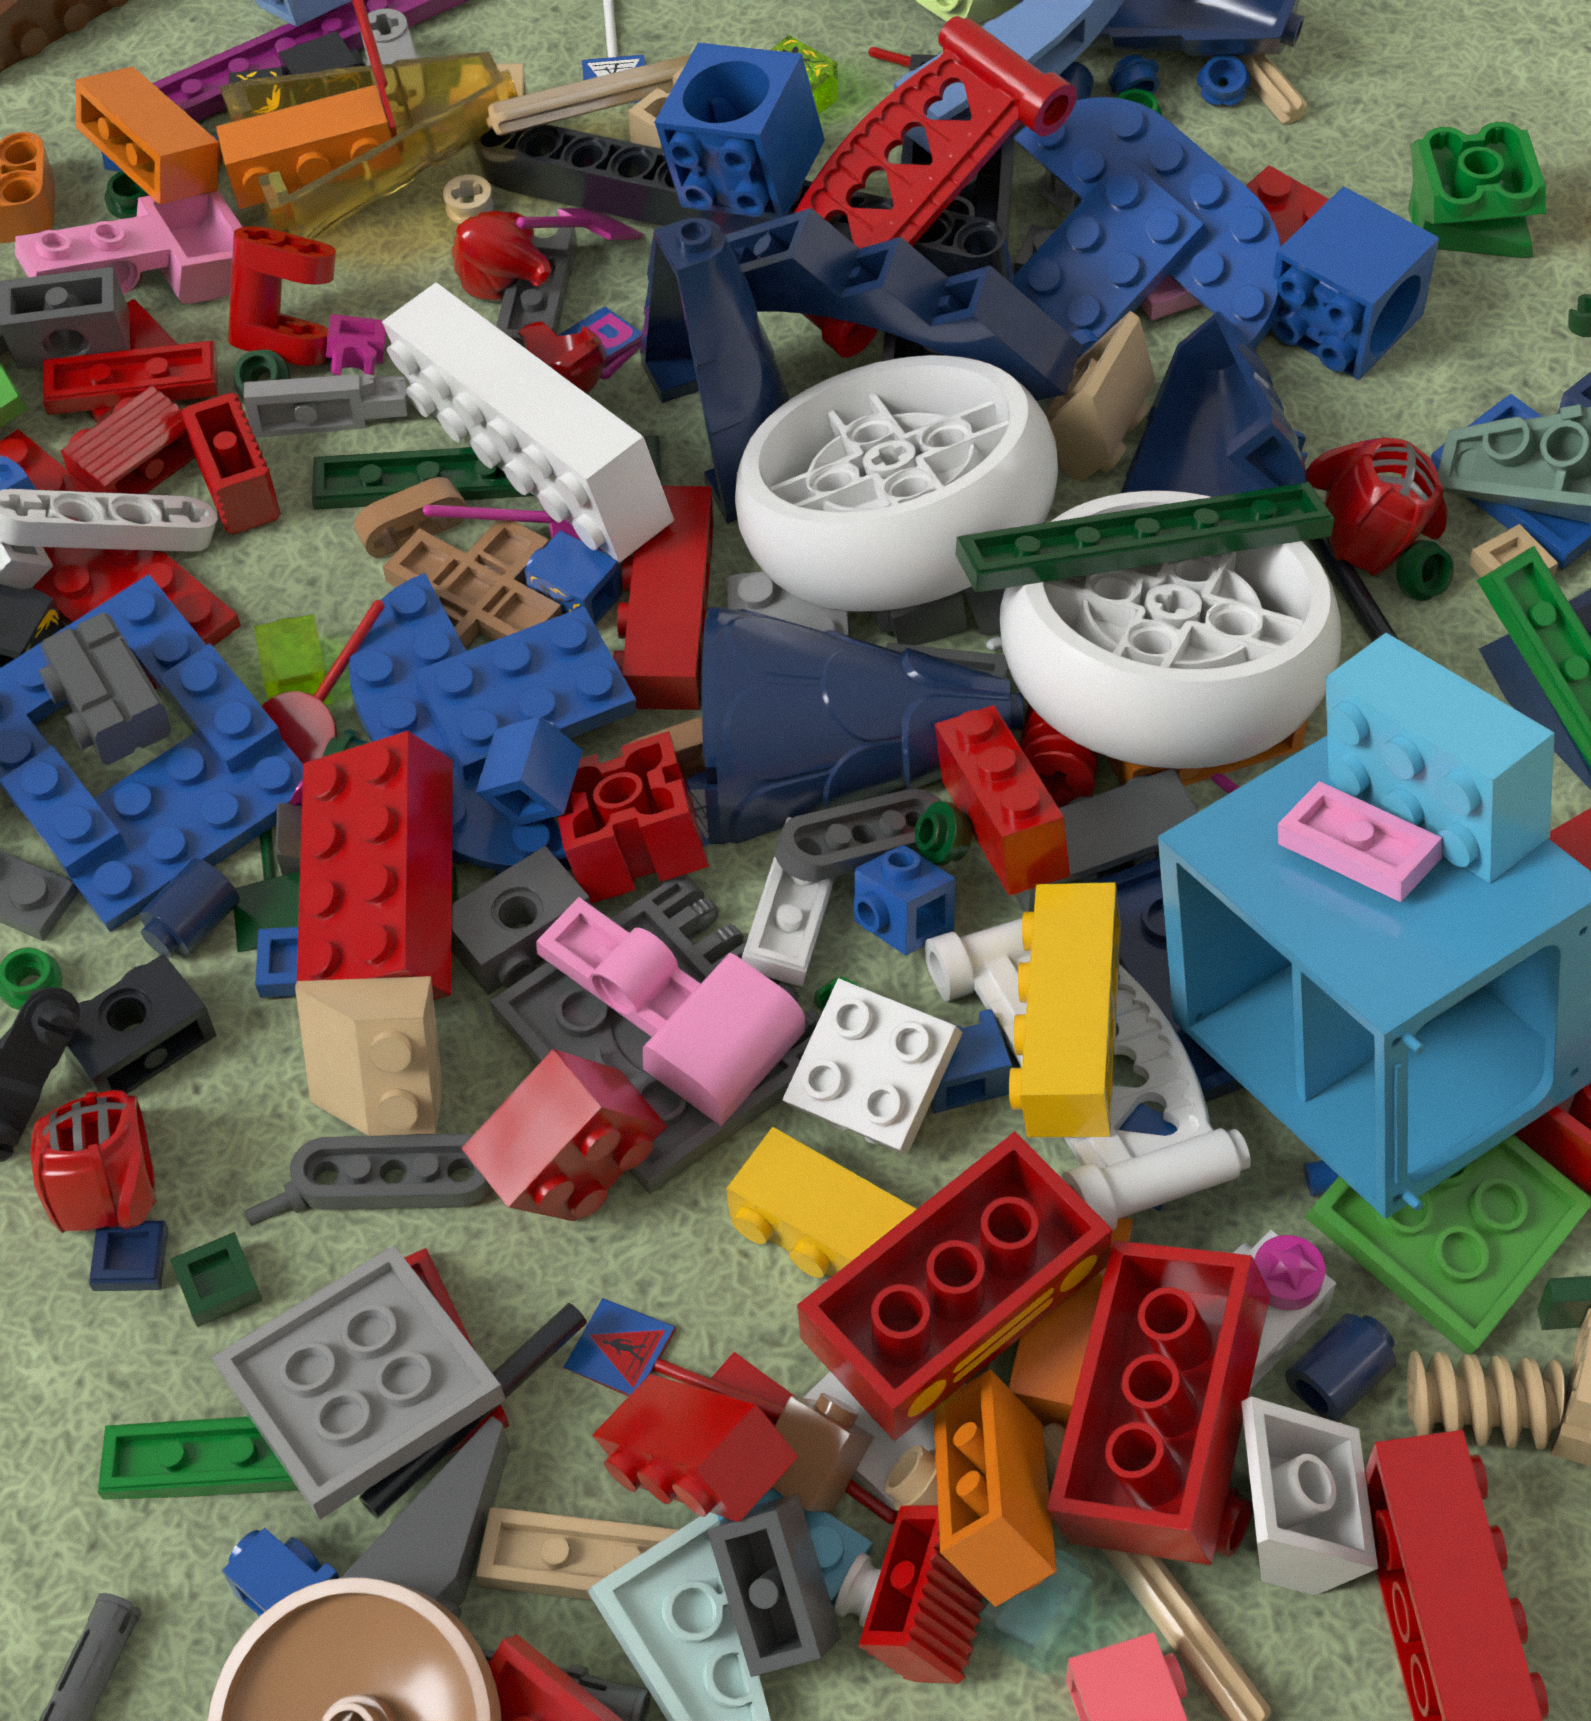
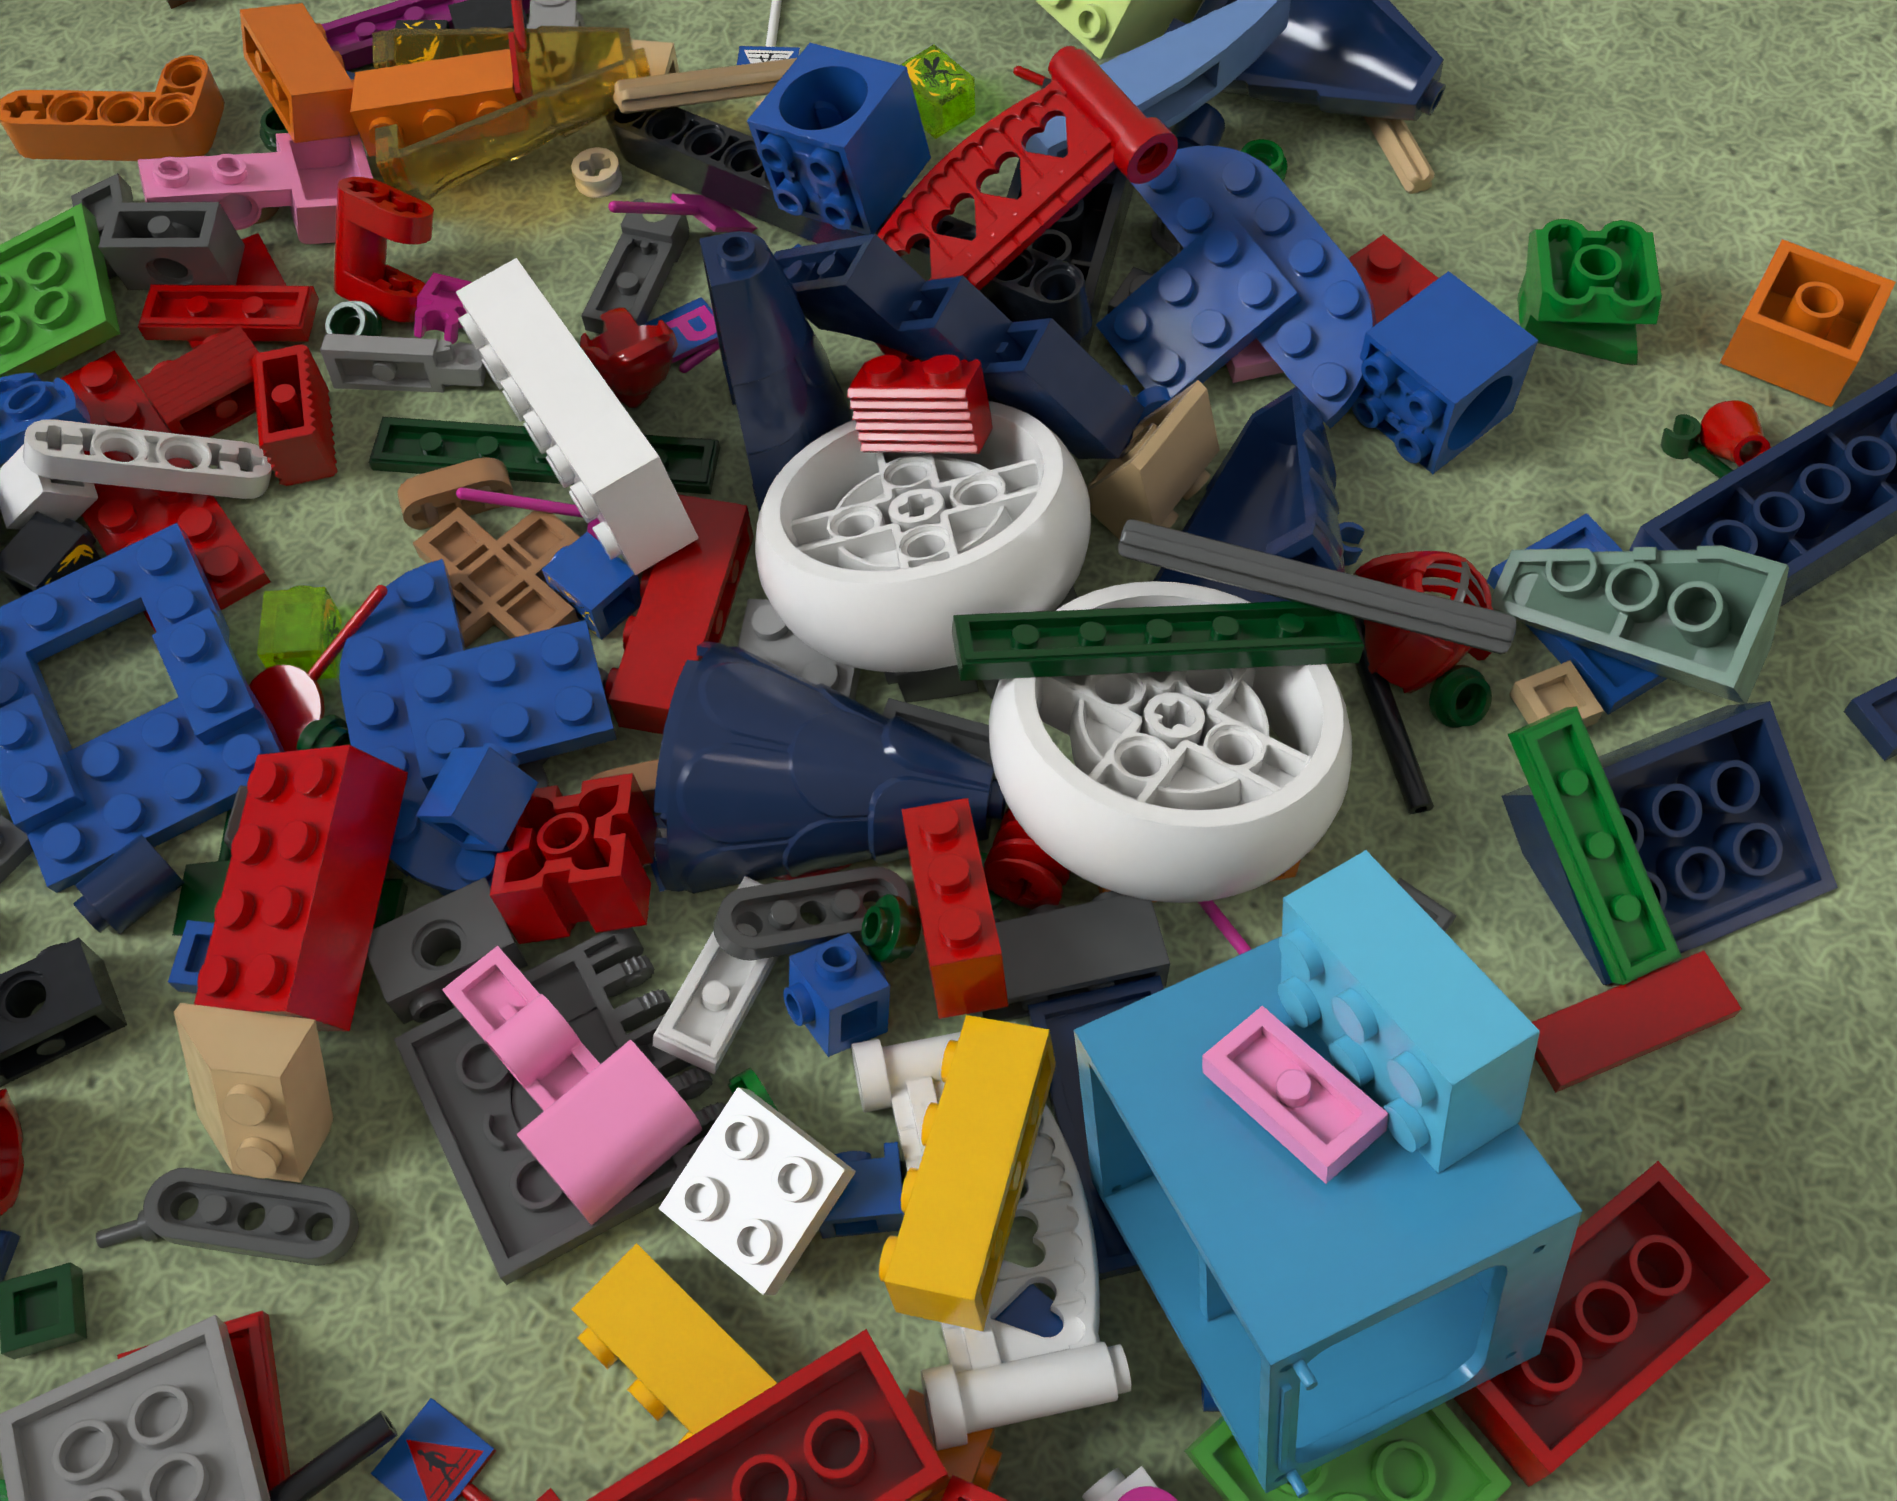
camera: 10 degrees right, 5 degrees up
(105, 689) = (88, 643): dark grey brick -> none
(494, 253) = (597, 236): red hair -> none
(564, 1137) = (410, 1227): brick -> none
(874, 365) = (921, 405): none -> red brick
(1134, 73) = (1268, 124): blue plate -> none
(1228, 69) = (1355, 128): blue plate -> none
(1280, 472) = (1318, 586): none -> dark grey axle

